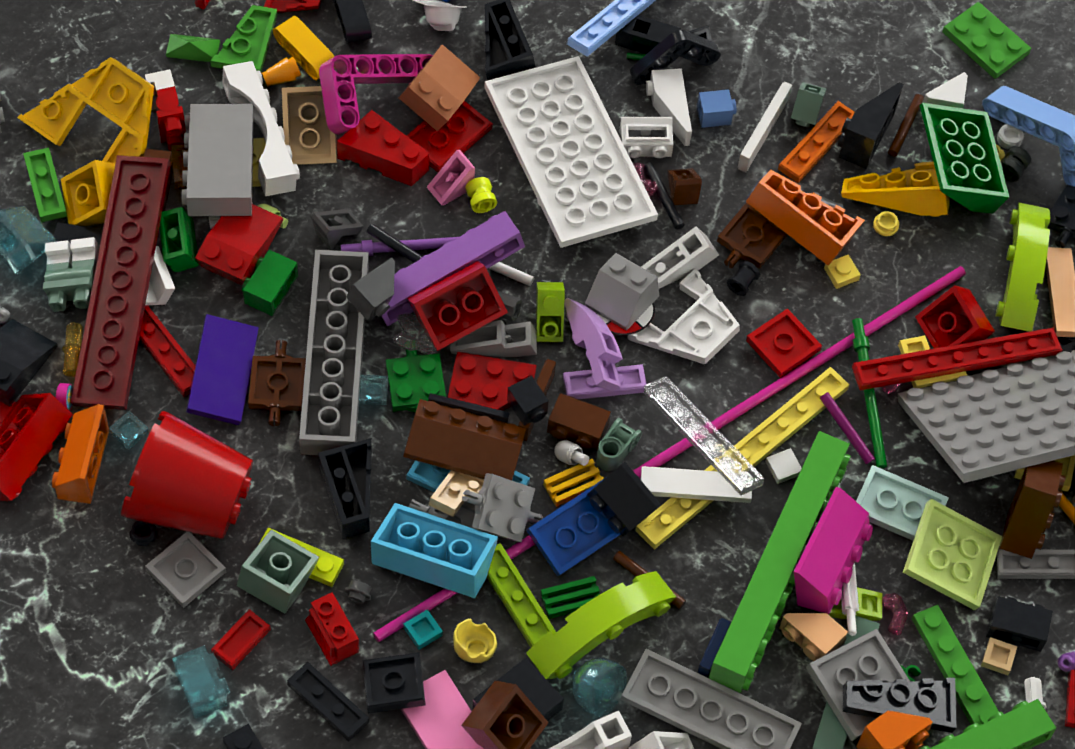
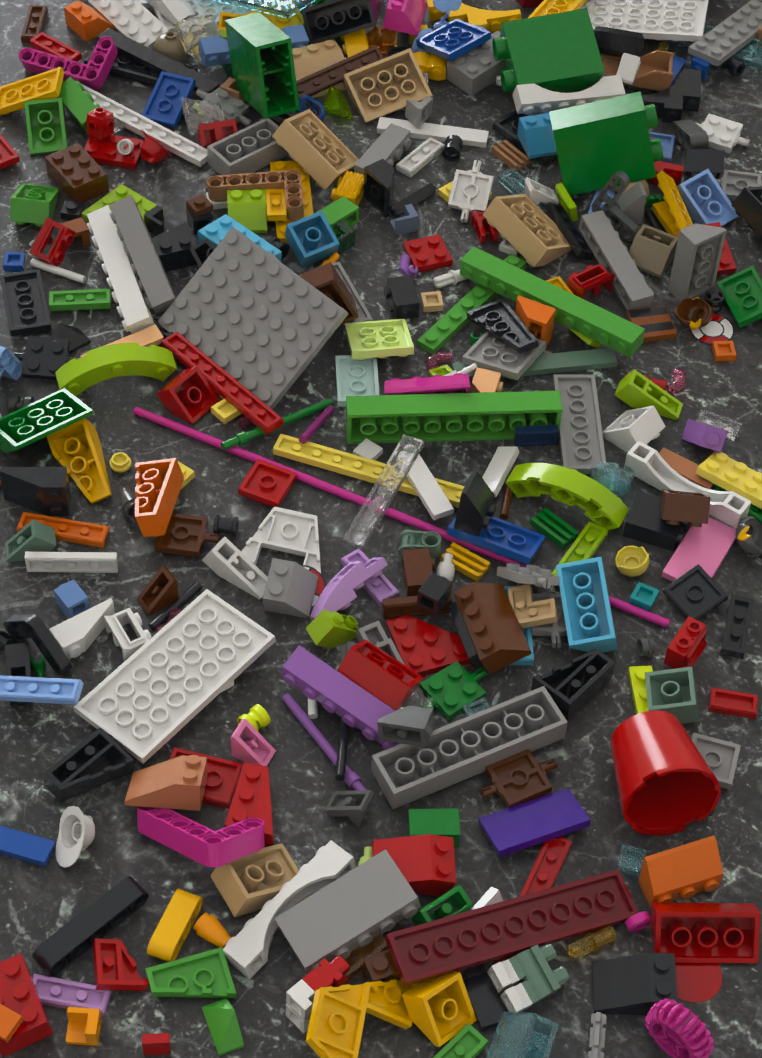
camera: 115 degrees left, 10 degrees down
(682, 580) = (500, 467): none -> white tile

